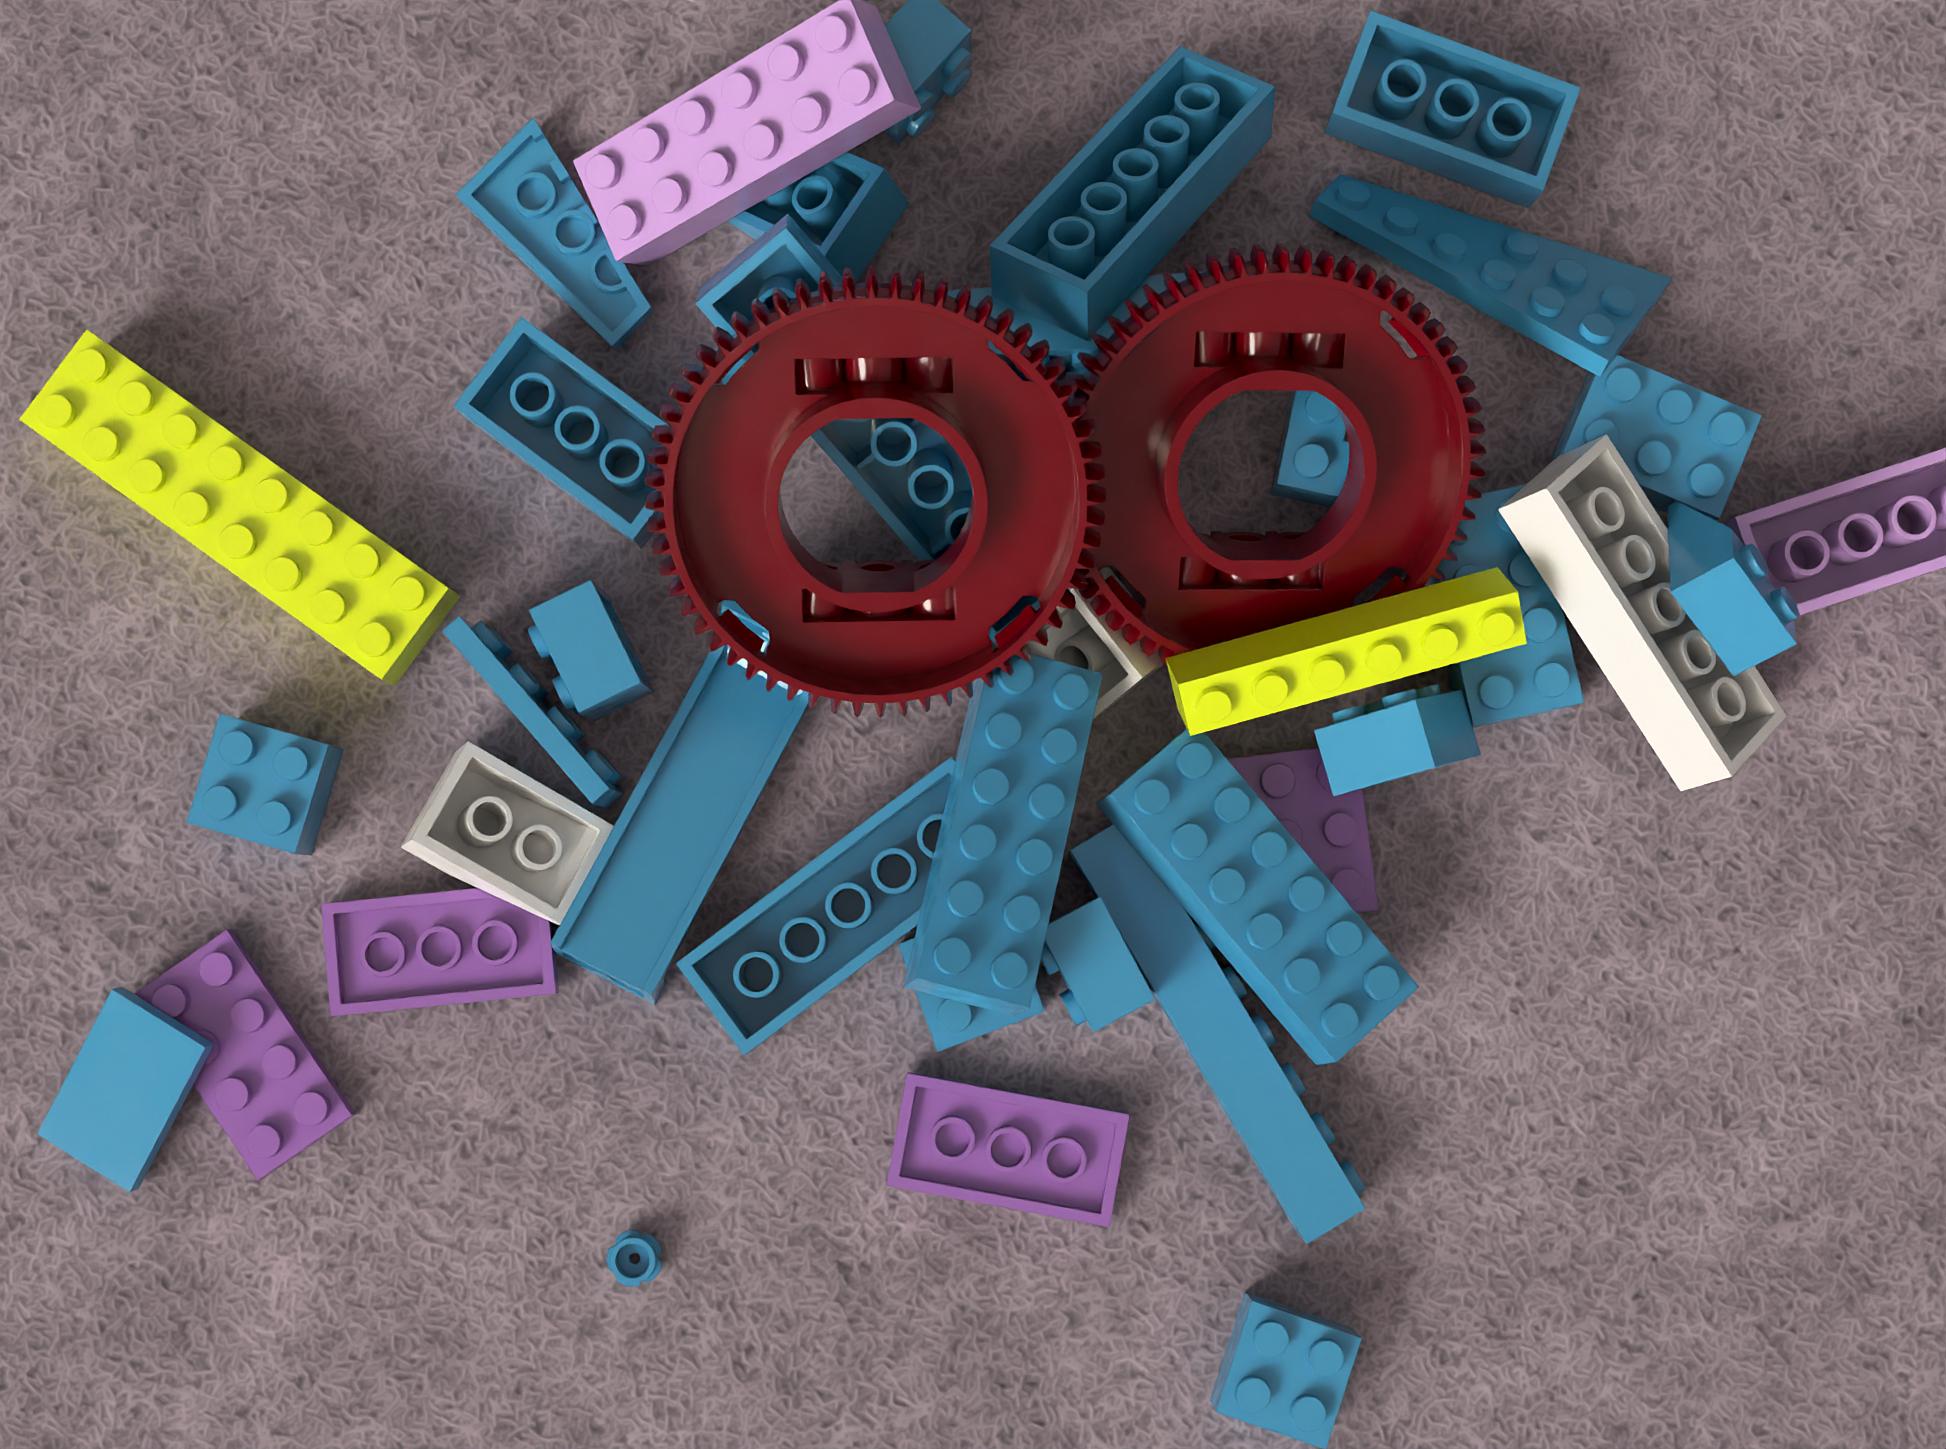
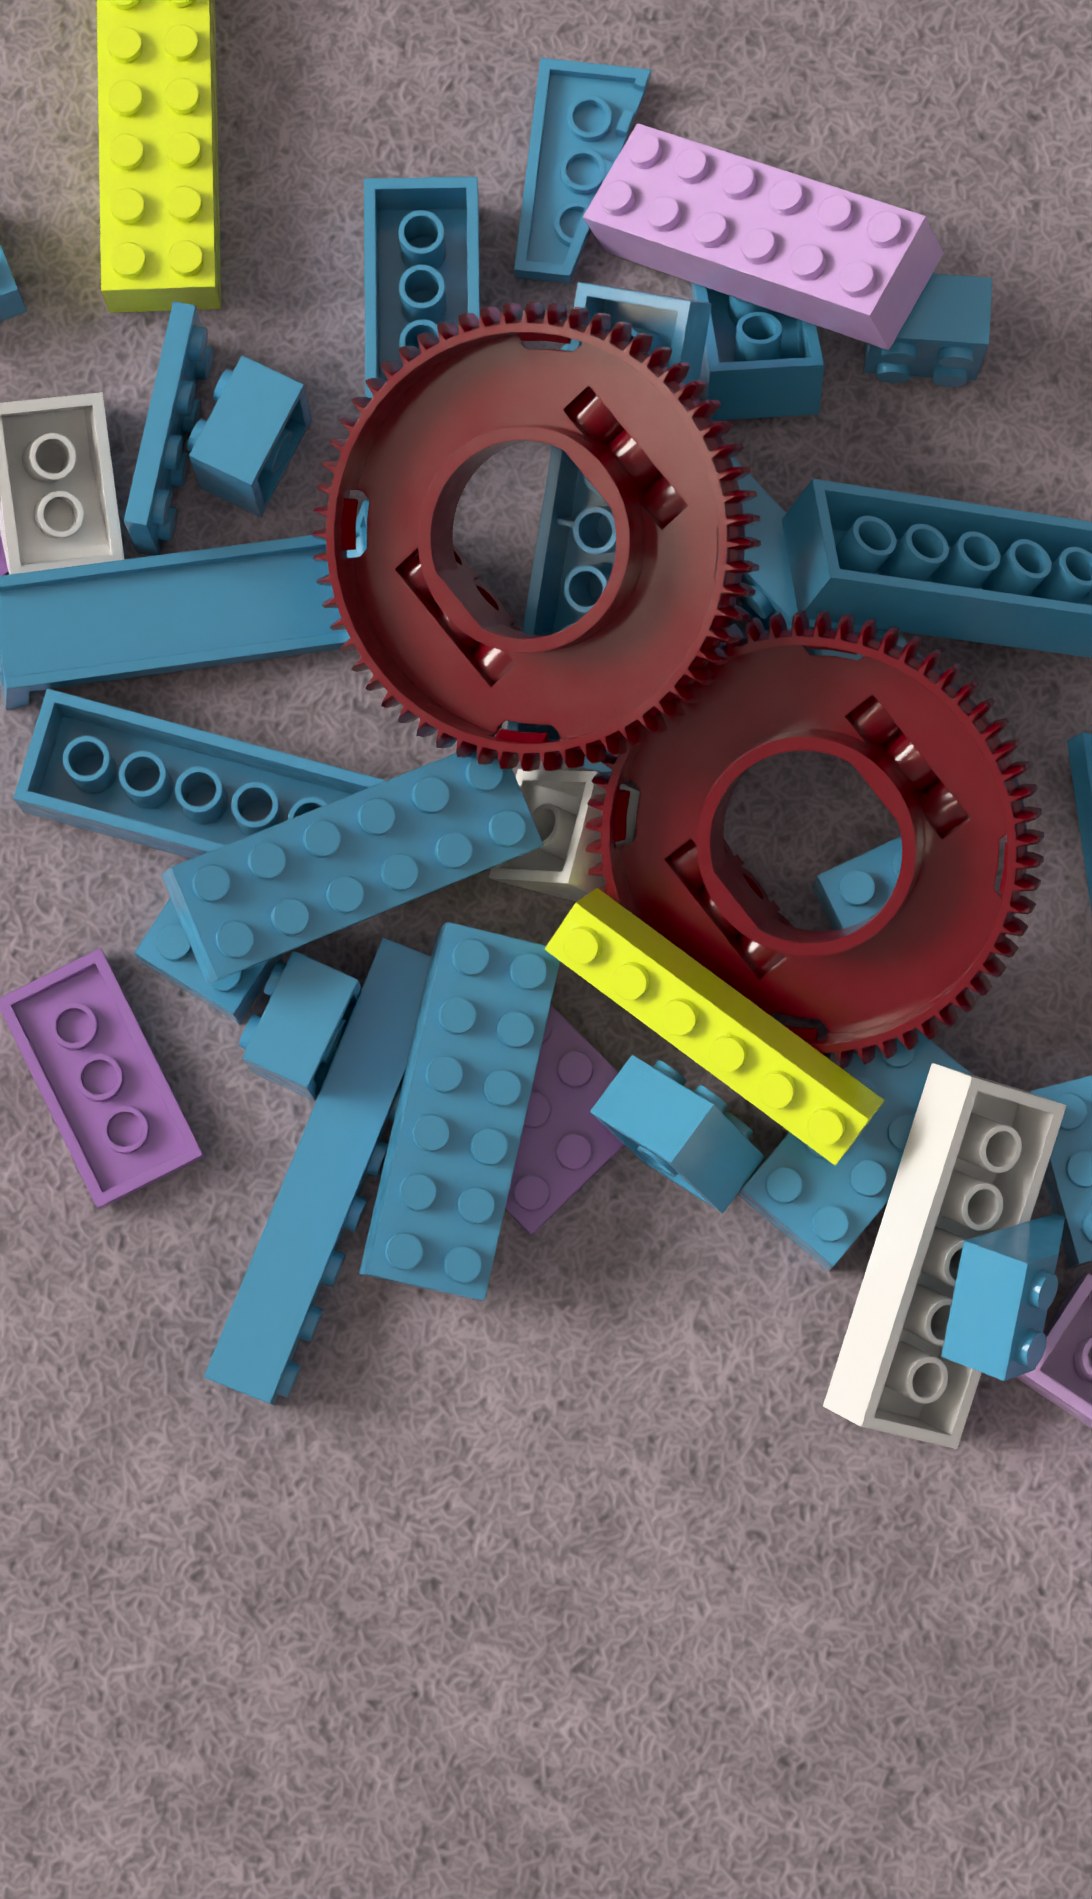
camera: 55 degrees right, 5 degrees down
(1285, 1370) = (85, 1441): dark azure brick -> none

